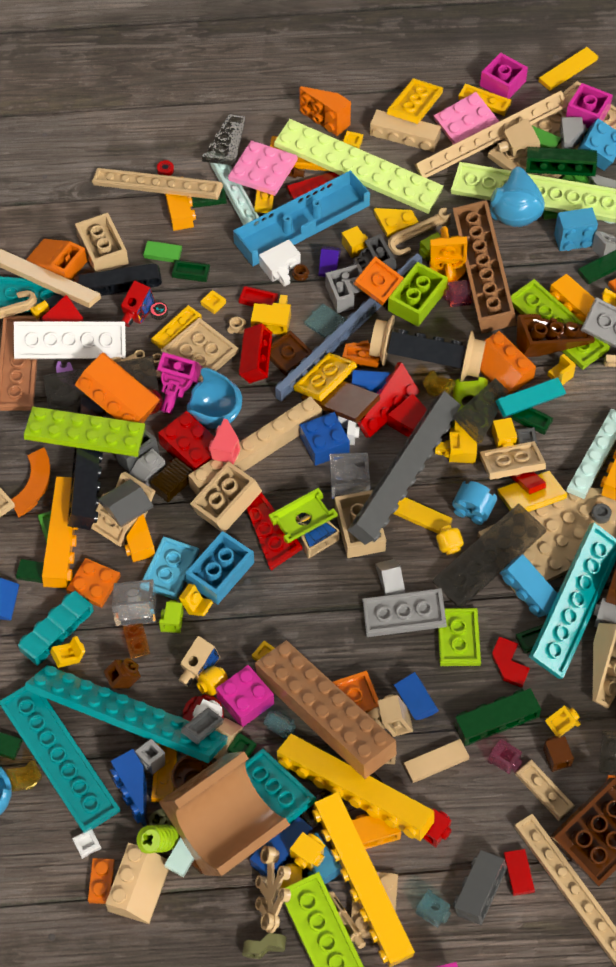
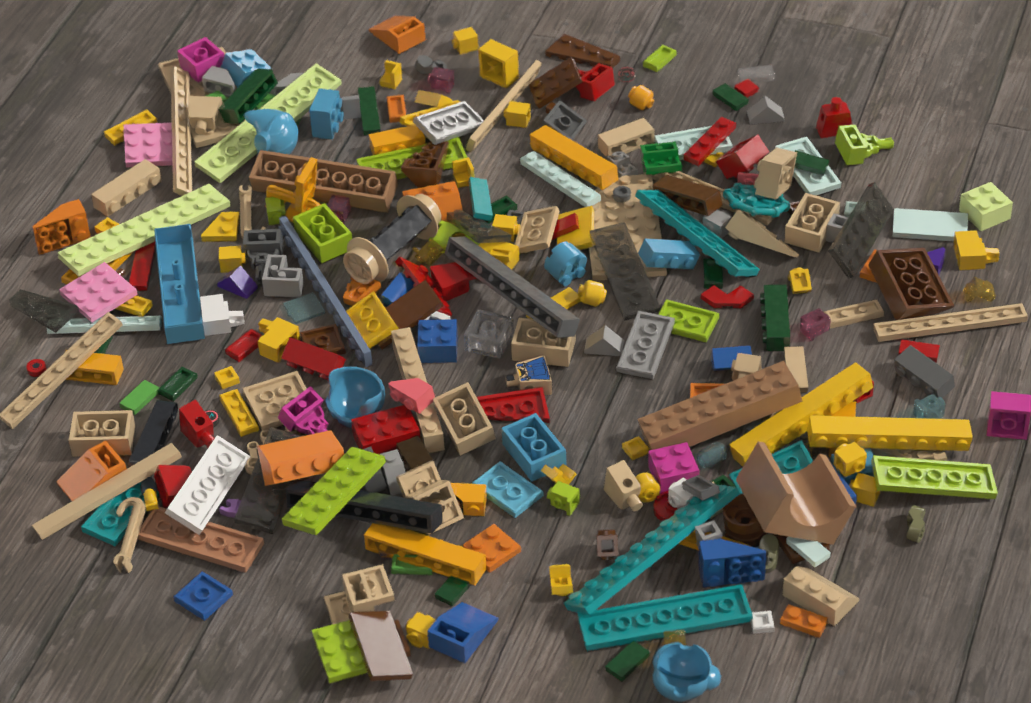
camera: 65 degrees left, 15 degrees down
(37, 483) = (342, 556): orange tile -> none
(56, 627) = (528, 584): teal brick -> none
(126, 502) = (434, 479): dark grey slope -> none
(134, 602) = (538, 513): clear brick -> none
(136, 640) = (570, 533): clear orange slope -> none
(157, 838) = (792, 553): lime piece -> none
(236, 321) = (267, 367): tan plate -> none
(270, 888) = (877, 496): tan plant -> none
(300, 272) = (238, 305): reddish brown plate -> none
(310, 504) = (519, 361): lime piece -> none
(378, 280) = (298, 245): orange plate -> none
(415, 101) = (99, 168): yellow tile -> none
(503, 76) = (117, 103): dark pink brick -> none
(558, 753) = (827, 292): reddish brown brick -> none
(568, 68) = (136, 67): yellow tile -> none

